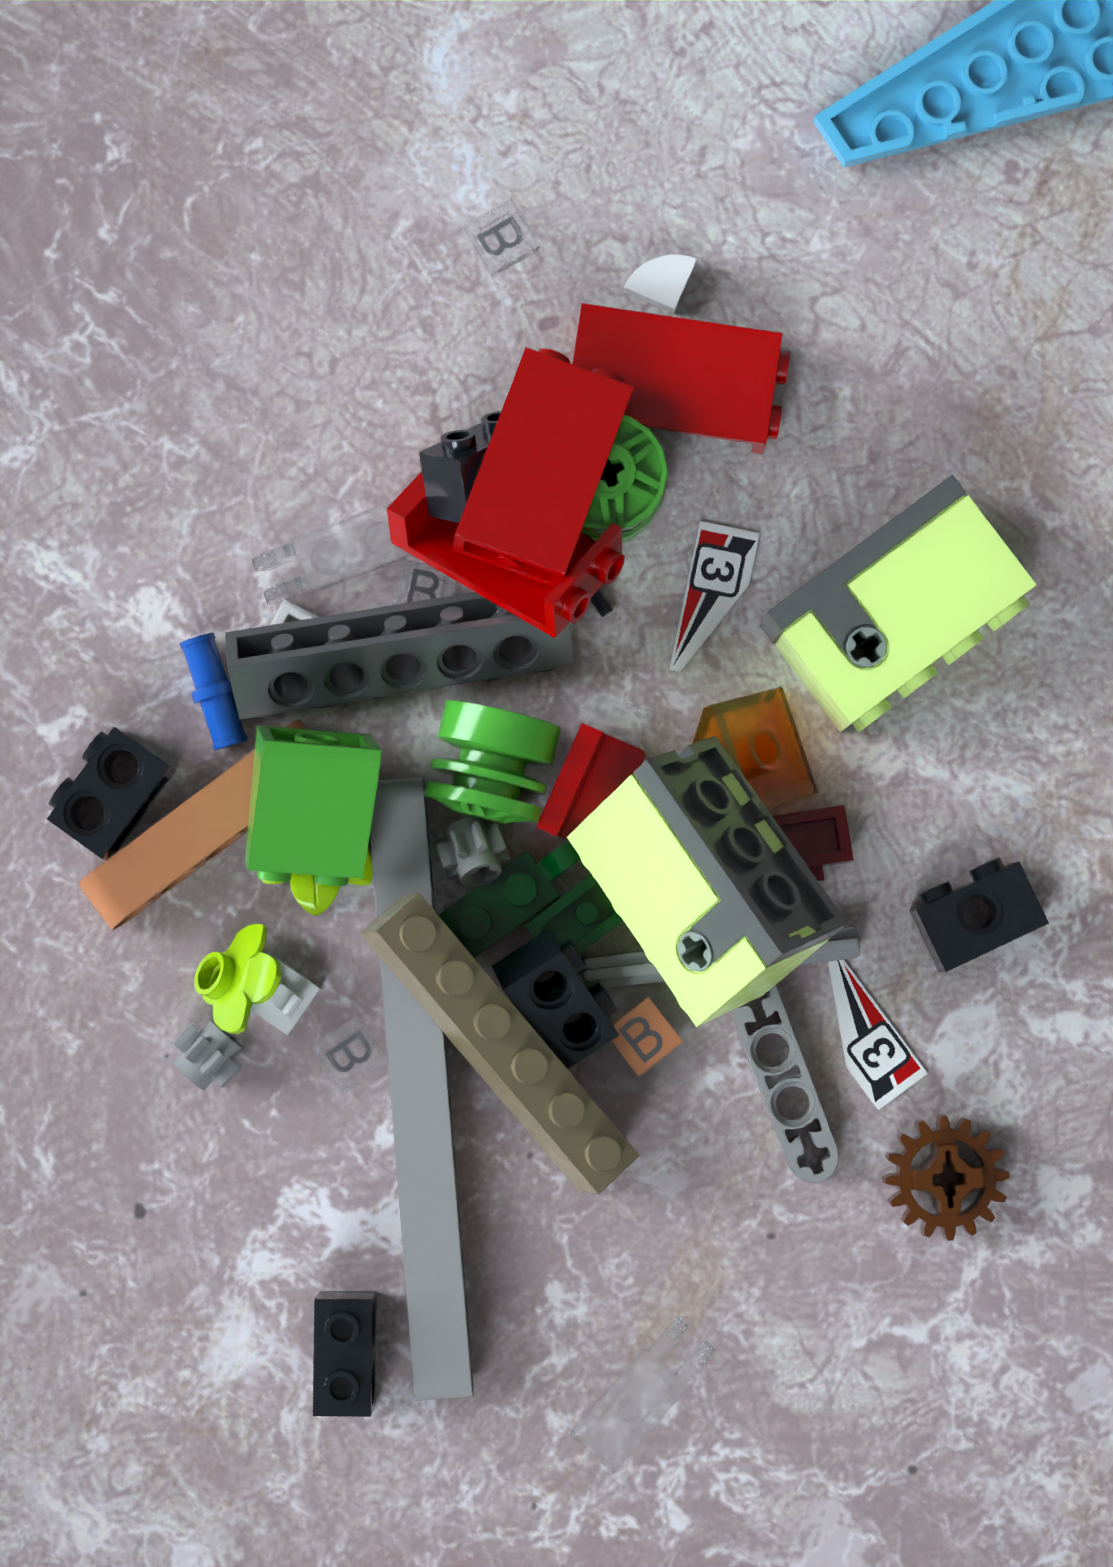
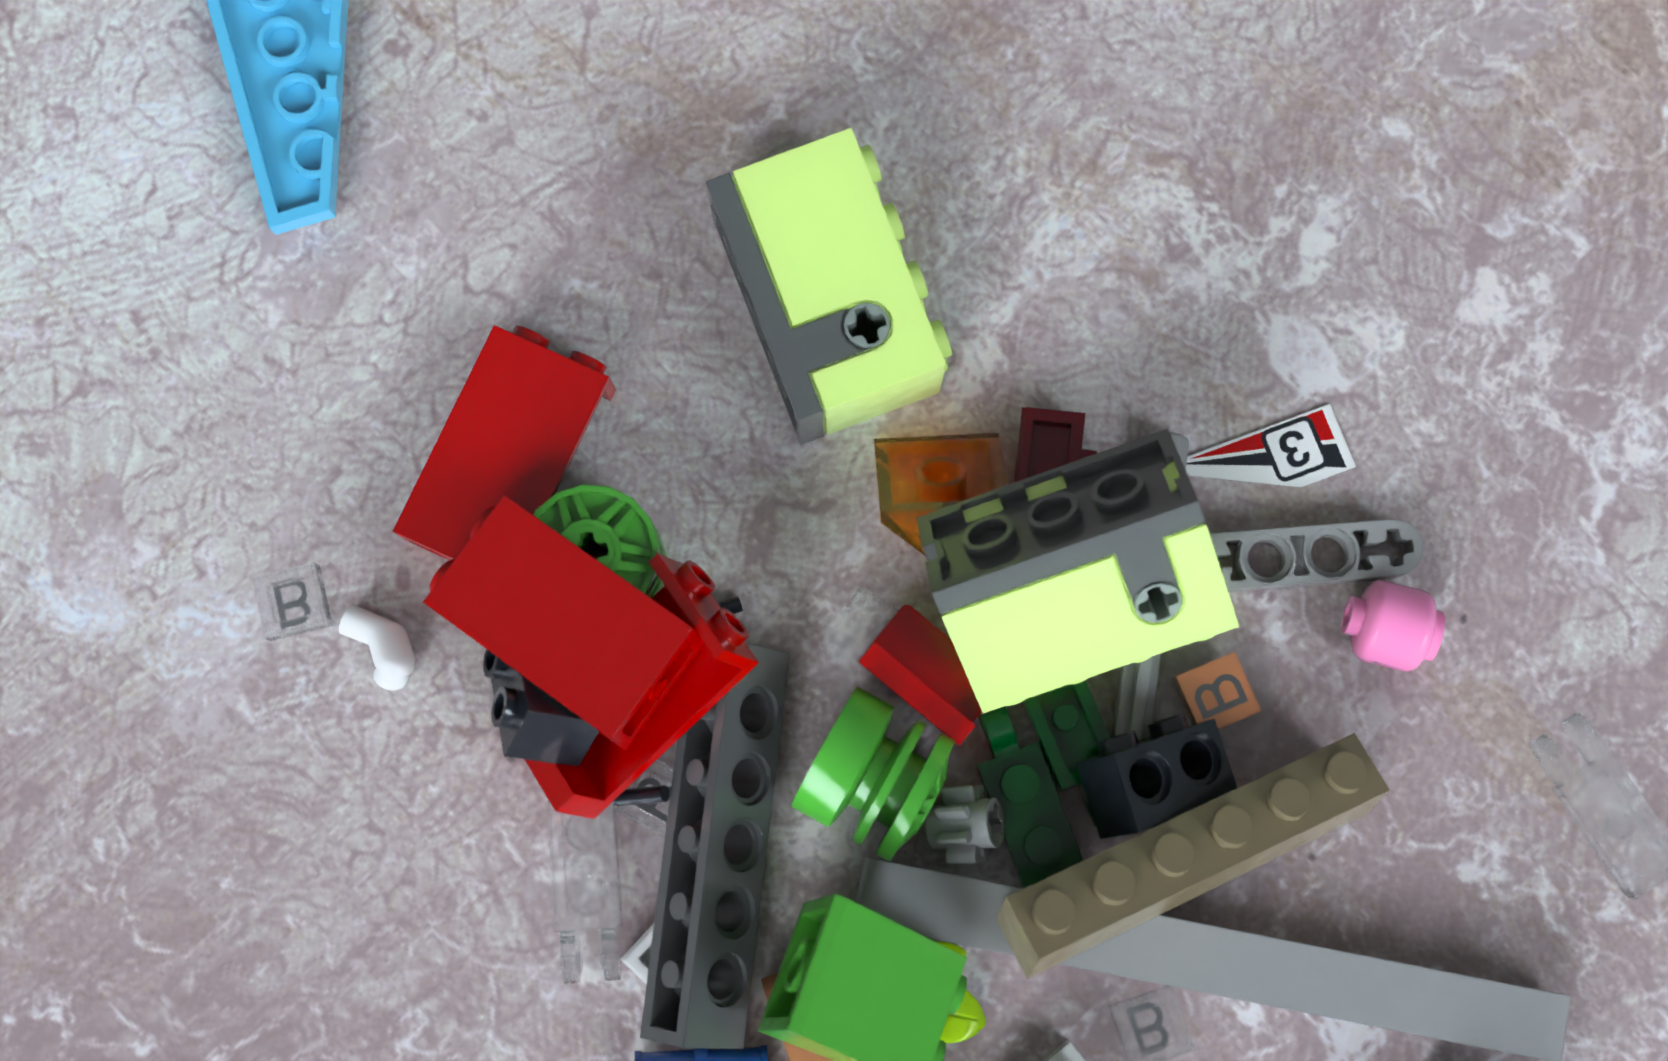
camera: 75 degrees left, 5 degrees down
(421, 577) = (643, 795): none -> black piece
(489, 327) = (387, 642): none -> white arm
(661, 280) = (395, 442): white tile -> none
(716, 580) = (741, 479): sticker -> none
(744, 1171) = (1393, 625): none -> bright pink head
(970, 1176) = (1473, 398): reddish brown gear -> none
(1011, 906) = (1189, 265): black brick -> none

